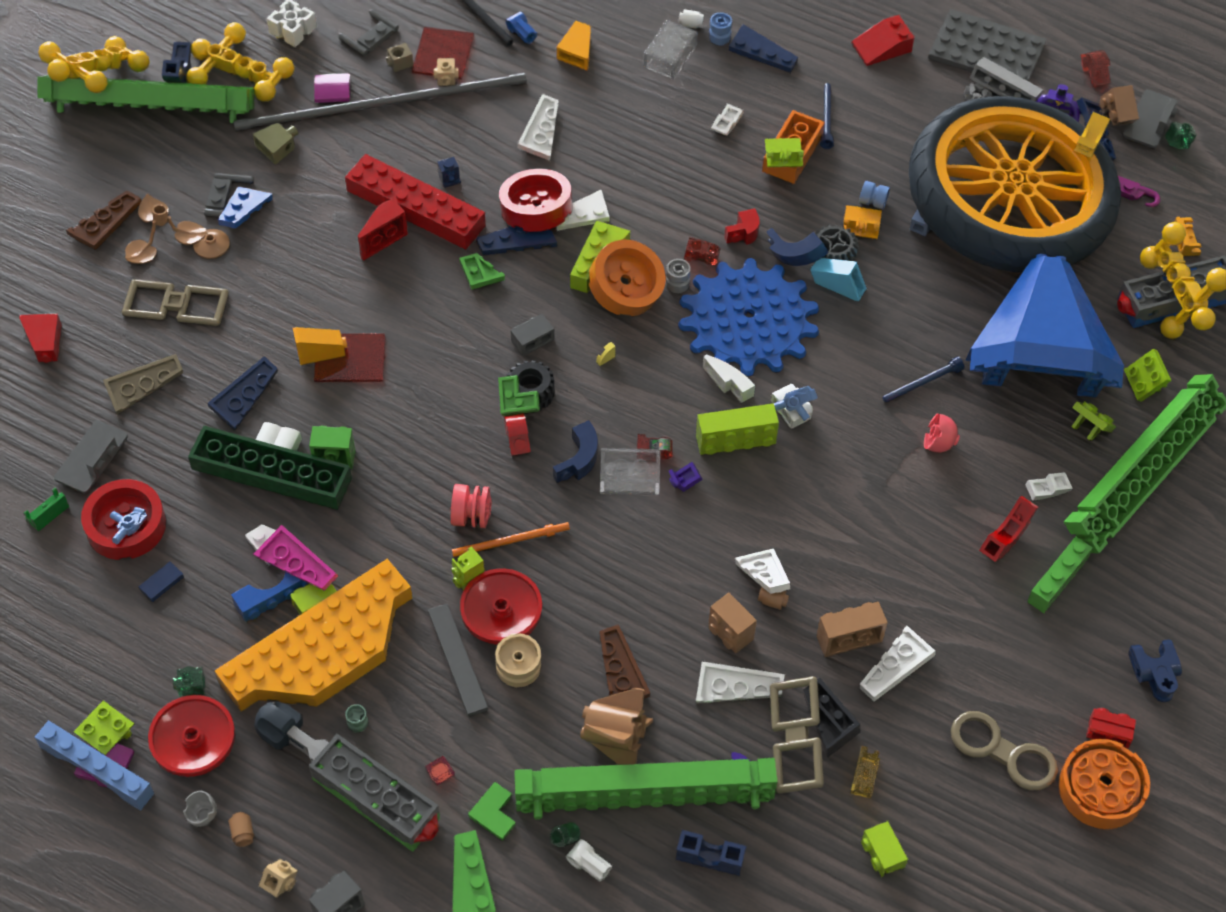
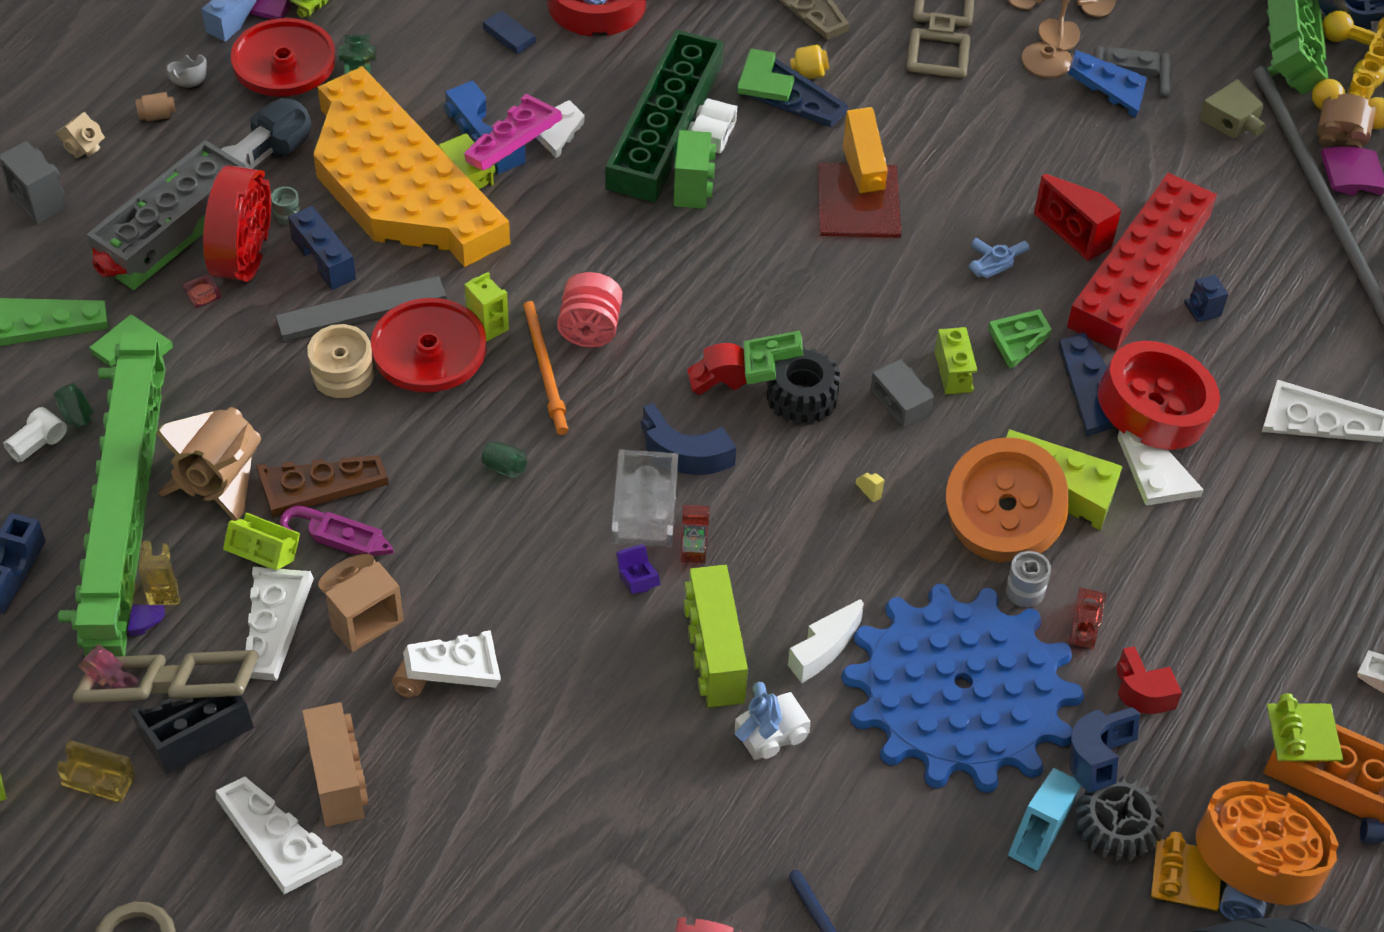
camera: 90 degrees right, 5 degrees down
(214, 379) = (810, 62): none -> yellow head
(233, 411) = (760, 82): none -> bright green tile
(297, 82) = (1345, 121): none -> medium nougat brick
(389, 694) = (315, 236): none -> dark blue arch
(402, 729) = (236, 223): none -> red brick
(411, 279) = (996, 258): none -> medium blue piece
(505, 304) = (955, 360): none -> lime hinge
(596, 557) = (504, 459): none -> clear green brick
(663, 652) = (340, 532): none -> magenta plate
(680, 694) = (261, 541): none -> lime hinge
(691, 641) = (344, 570): none -> medium nougat dish
(719, 750) = (158, 576): none -> clear yellow hinge
(792, 775) = (105, 668): none -> clear pink plate
(846, 191) = (1266, 843): none -> orange brick

